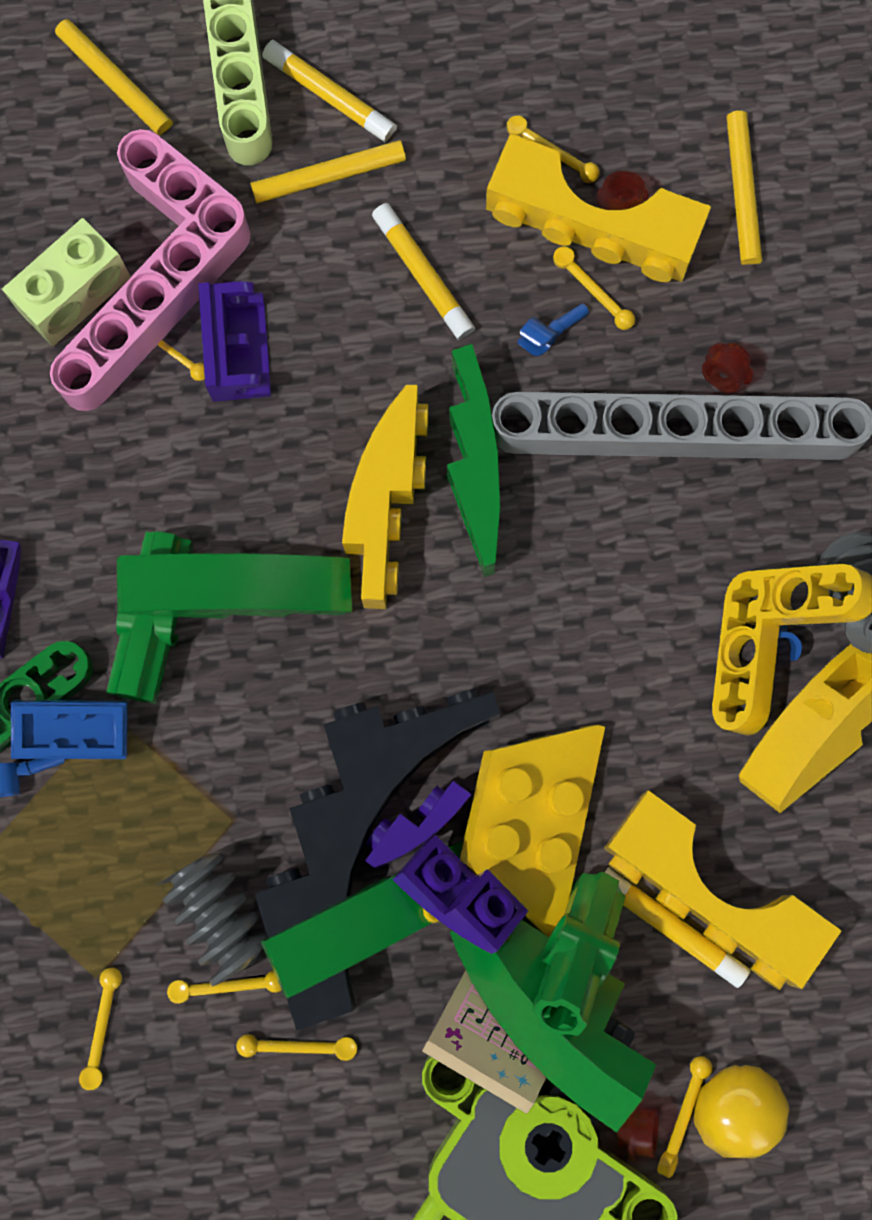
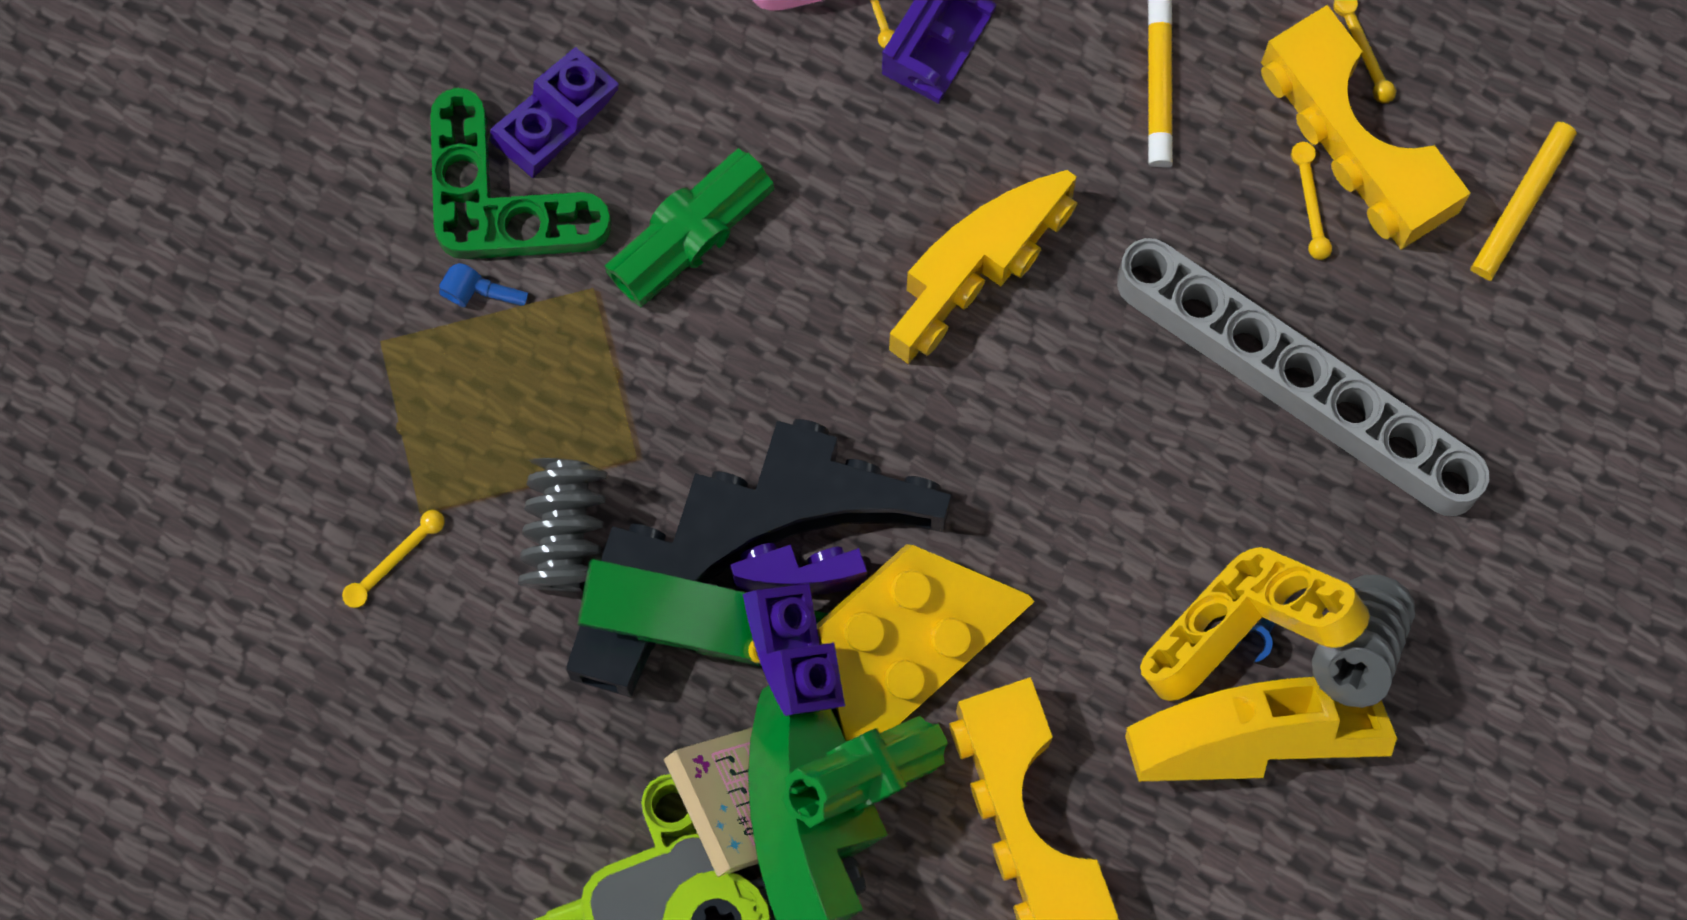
camera: 30 degrees right, 5 degrees down
(69, 729) = (549, 277): blue plate -> none
(180, 991) = (486, 575): yellow hinge -> none
(232, 585) = (785, 246): green slope -> none
(344, 1048) = (594, 724): yellow hinge -> none
(476, 476) = (1078, 295): green slope -> none
(538, 337) = (1226, 212): blue hand -> none
(622, 185) = (1403, 121): clear red plate -> none
(681, 933) = (973, 833): yellow bar -> none
(732, 362) = (1393, 350): clear red plate -> none

